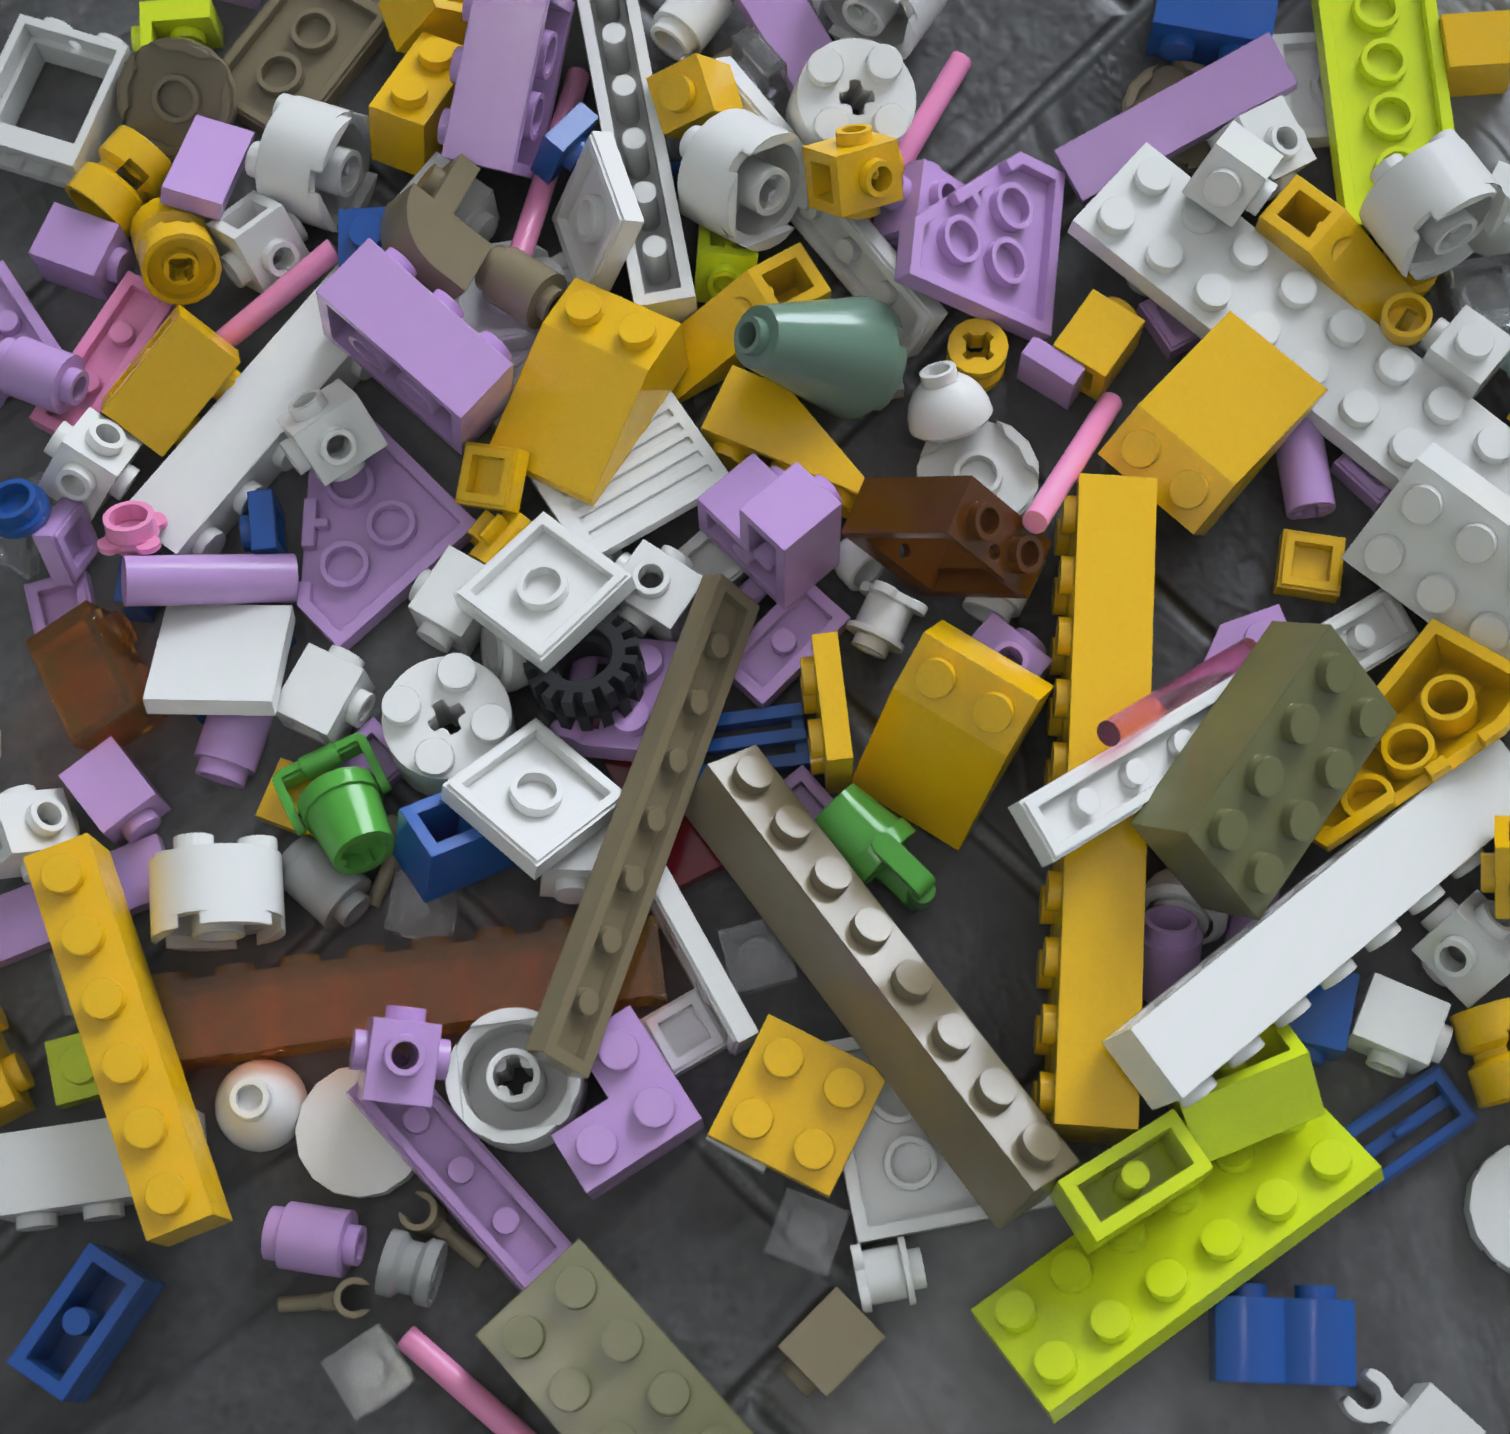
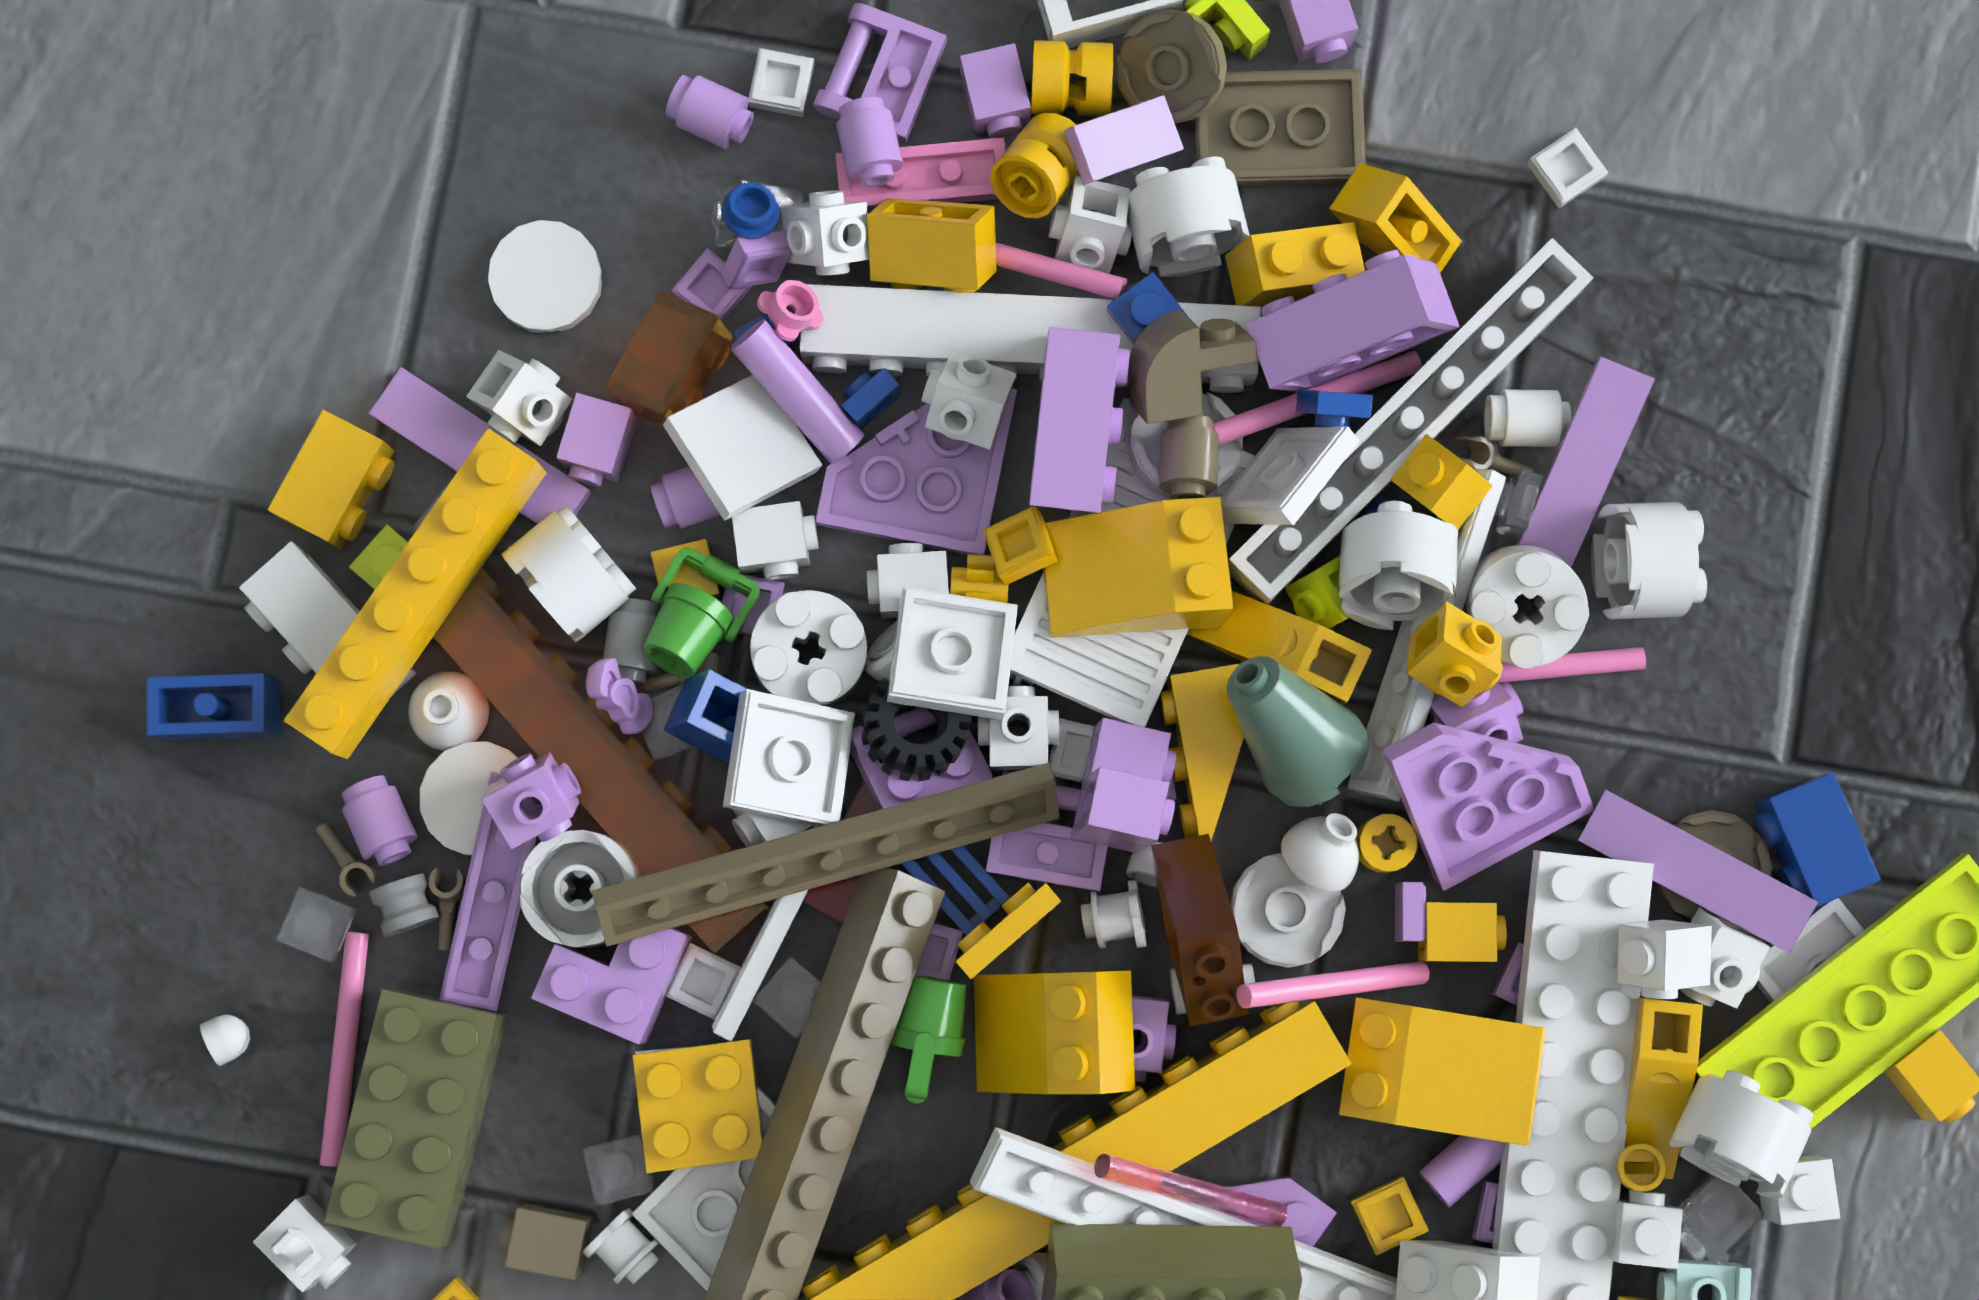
camera: 50 degrees right, 10 degrees up
(363, 921) = (618, 696): none -> lavender piece

